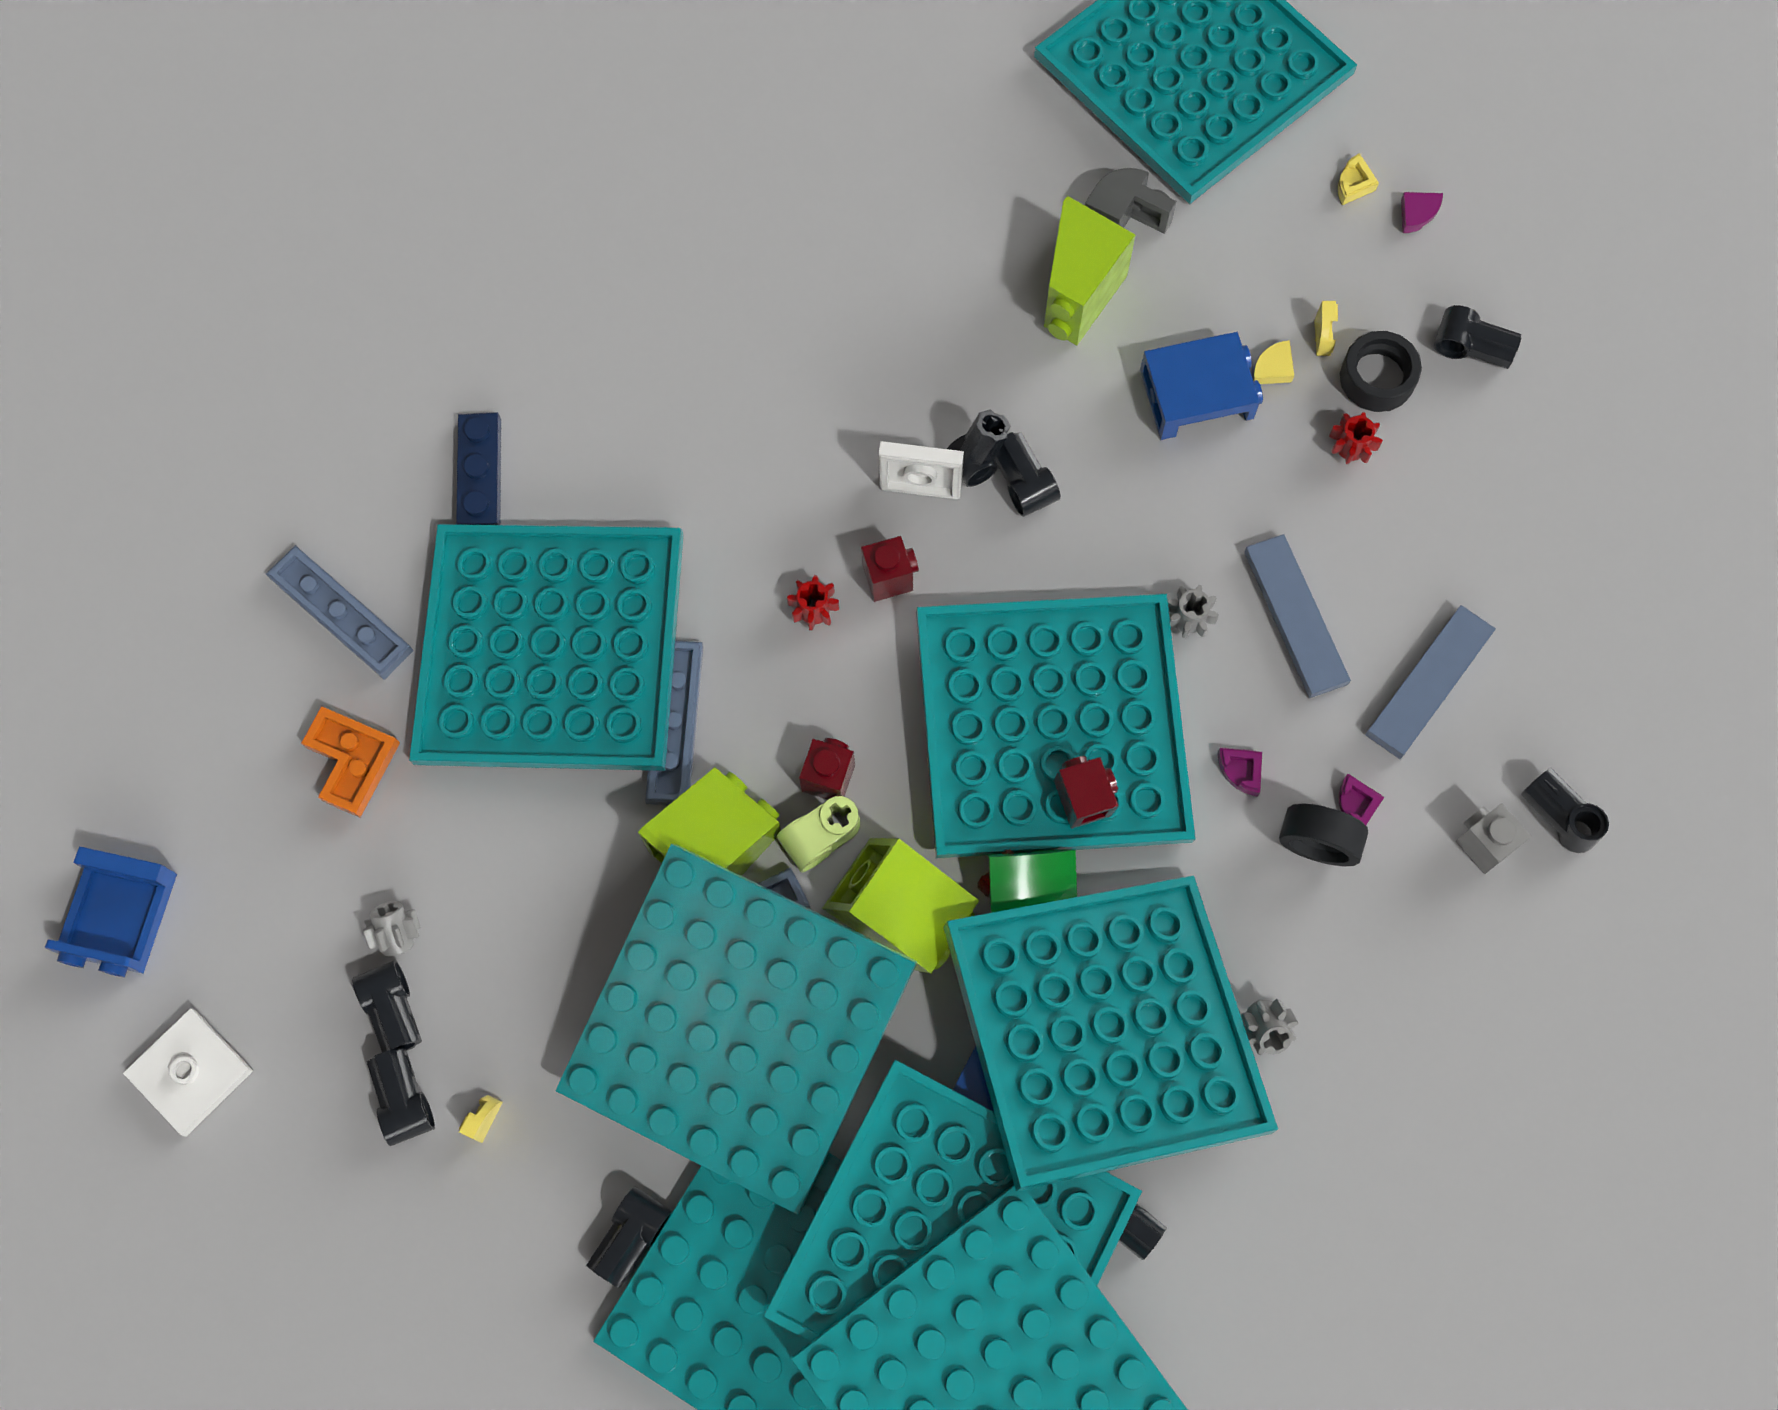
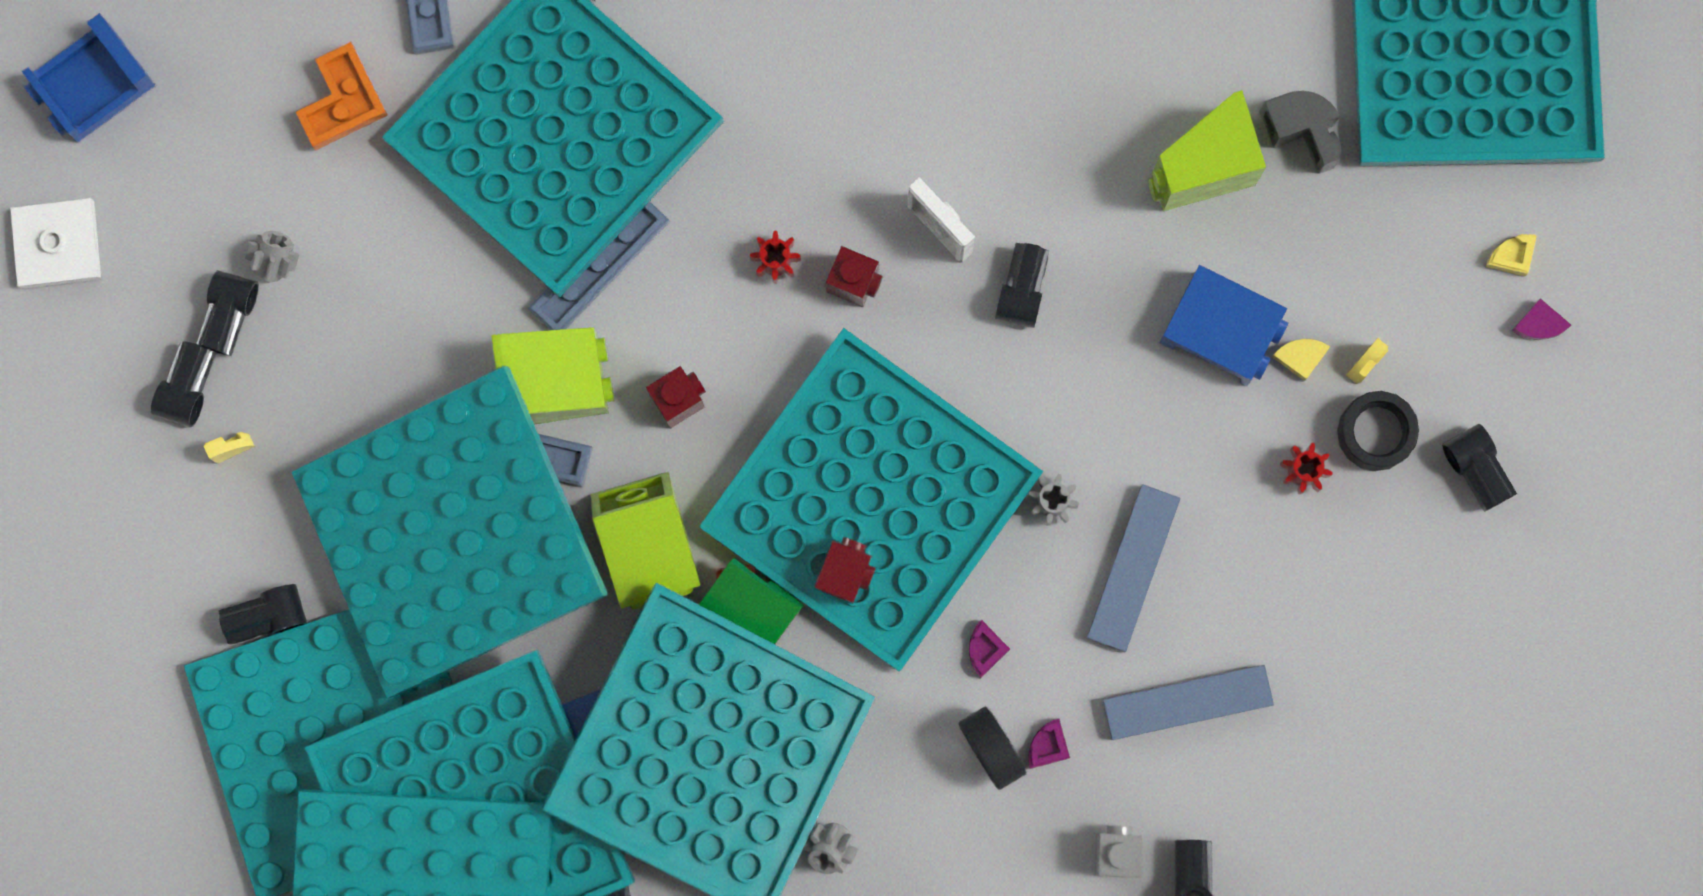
camera: 40 degrees right, 10 degrees up
(814, 837) = (626, 439): yellowish green piece -> none
(981, 446) = (1000, 238): black piece -> none

